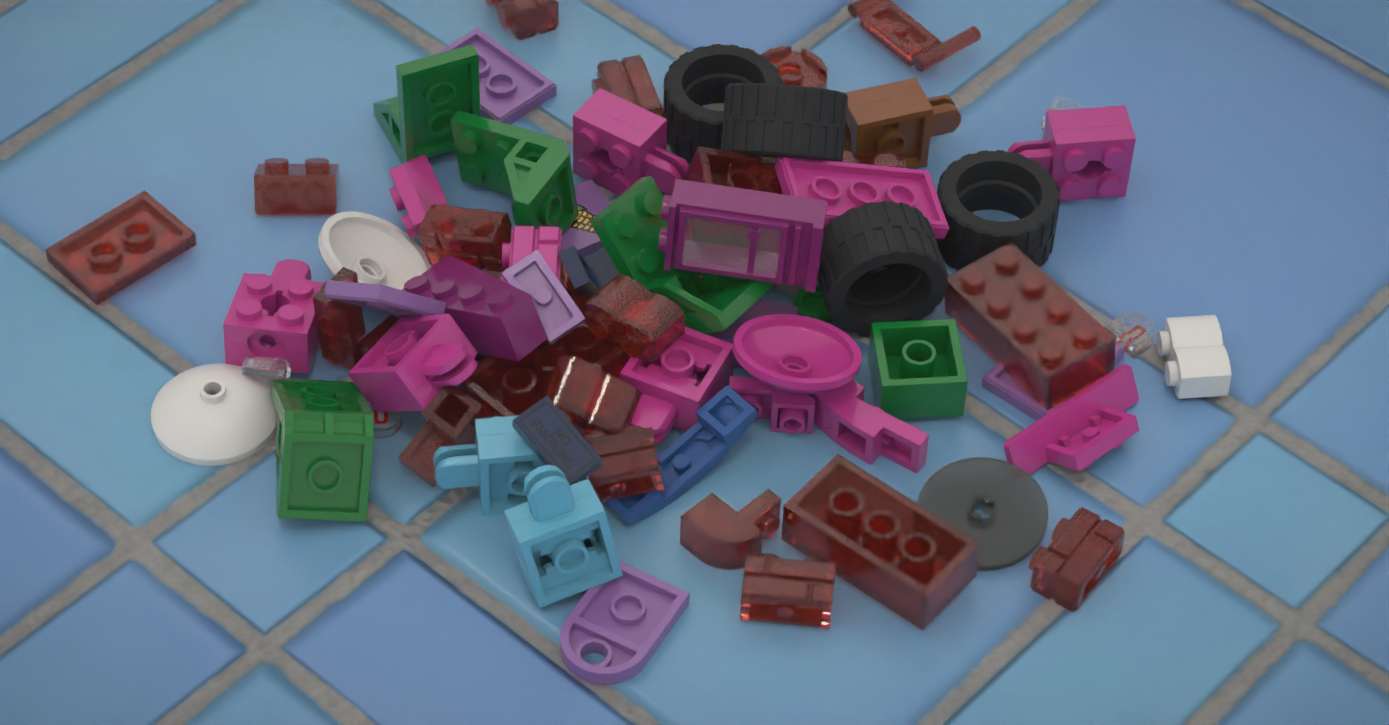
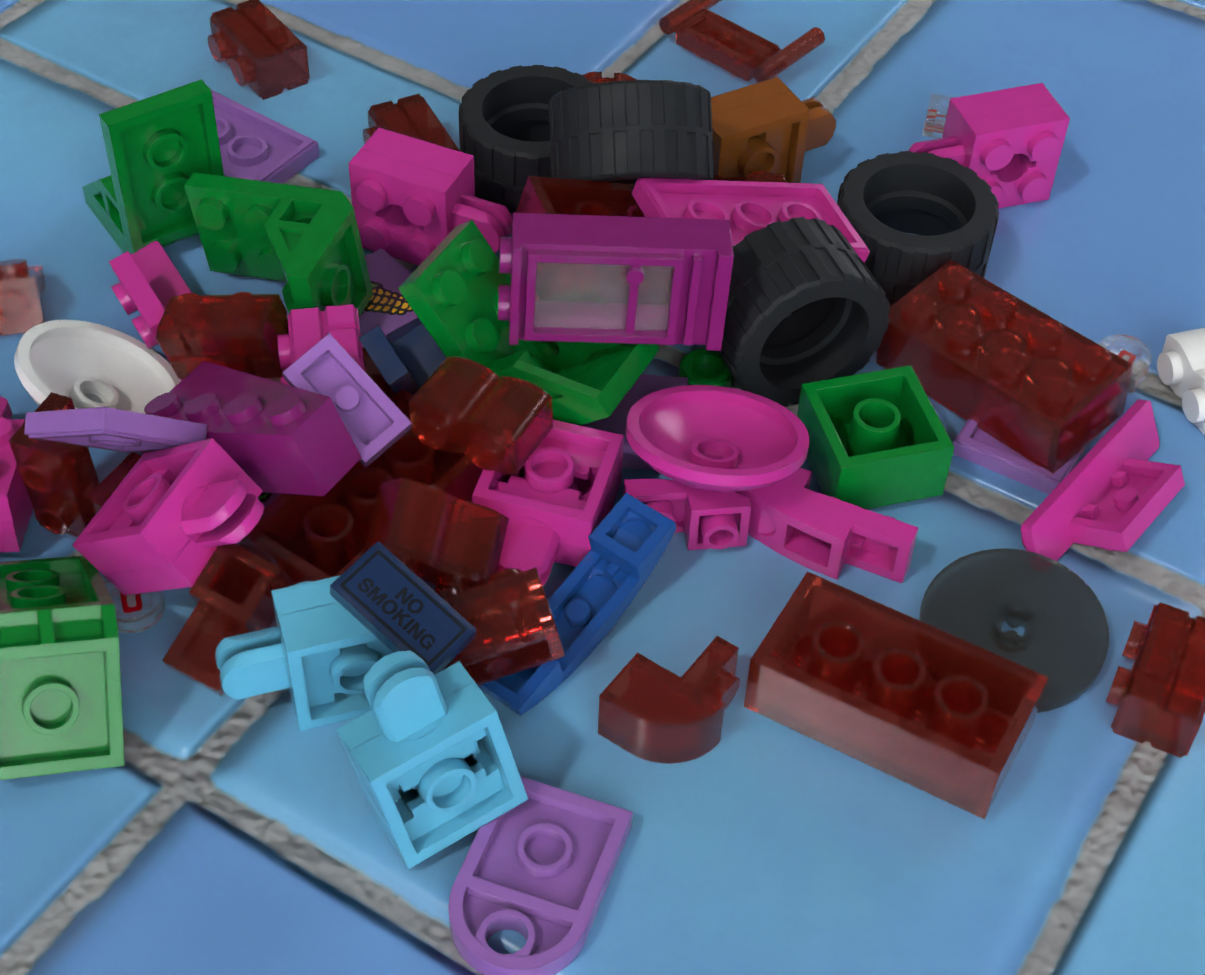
camera: 10 degrees left, 0 degrees up
(787, 590) = (778, 787): clear red brick -> none

